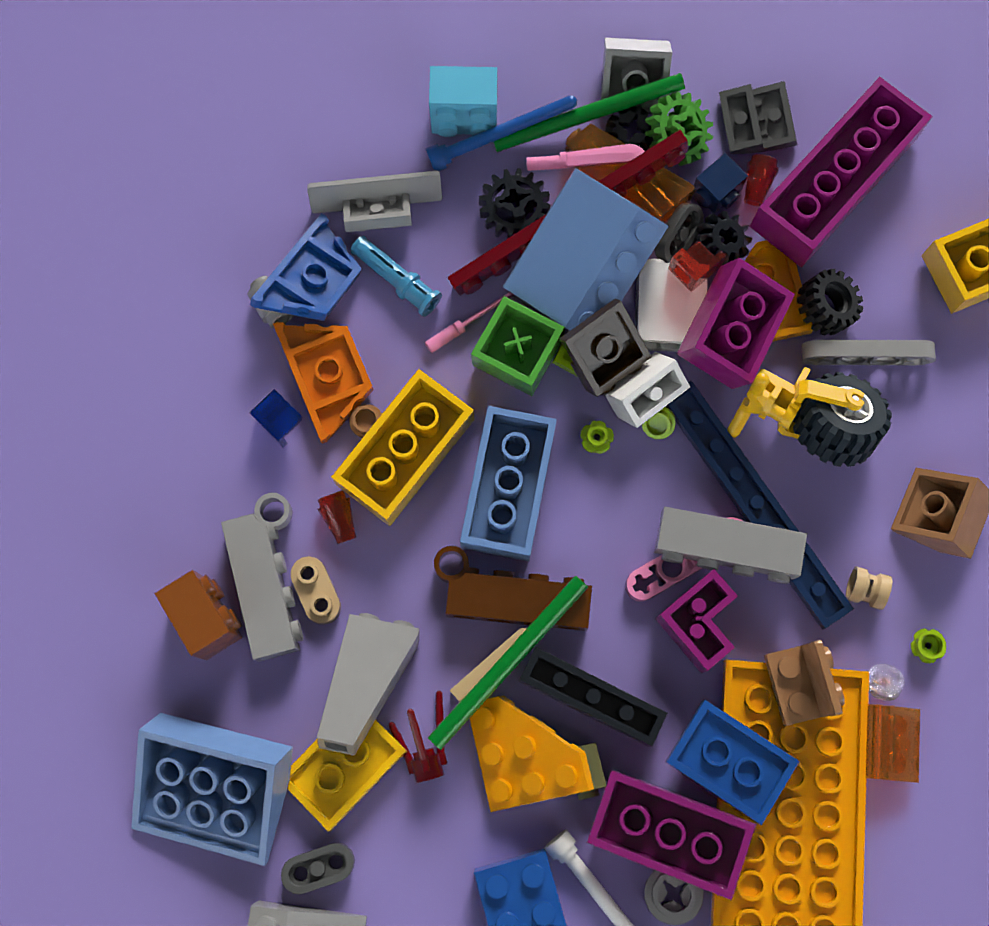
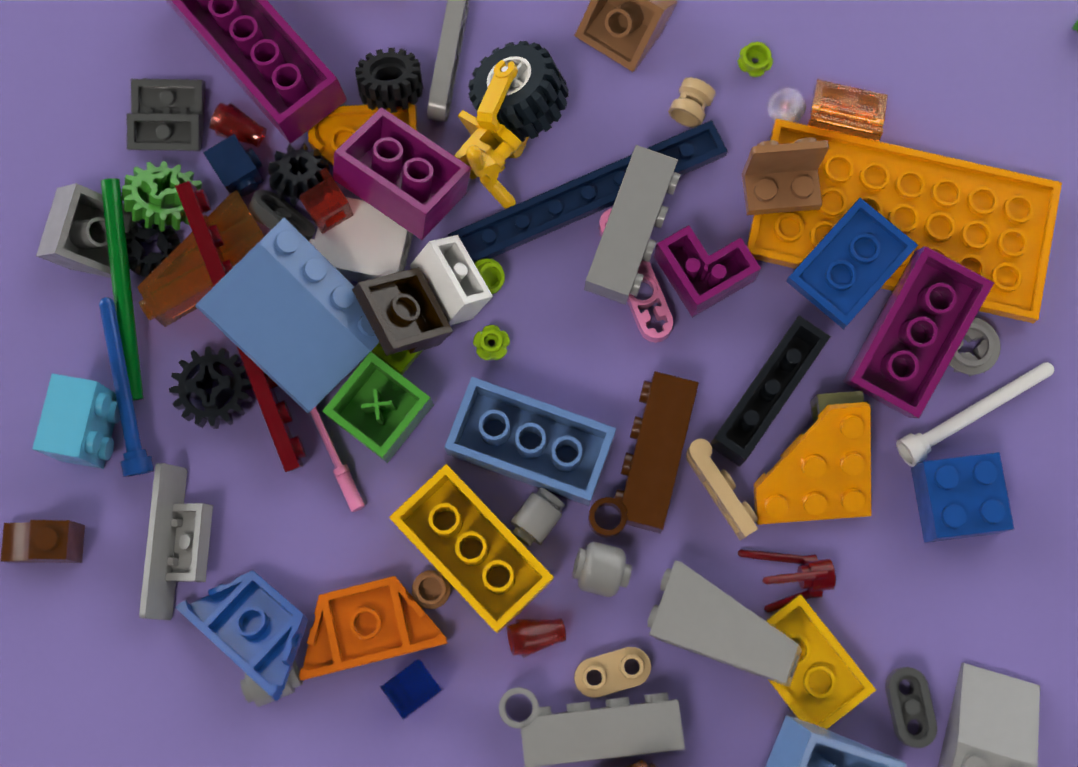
camera: 80 degrees left, 0 degrees up
(361, 98) = (43, 542): none -> reddish brown arch
(403, 565) = (601, 569): none -> light grey head
(407, 284) = (281, 521): dark azure pin -> none
(442, 501) = (537, 517): none -> light grey brick
(507, 662) = (726, 470): green piece -> none
(589, 157) = (179, 282): bright pink piece -> none

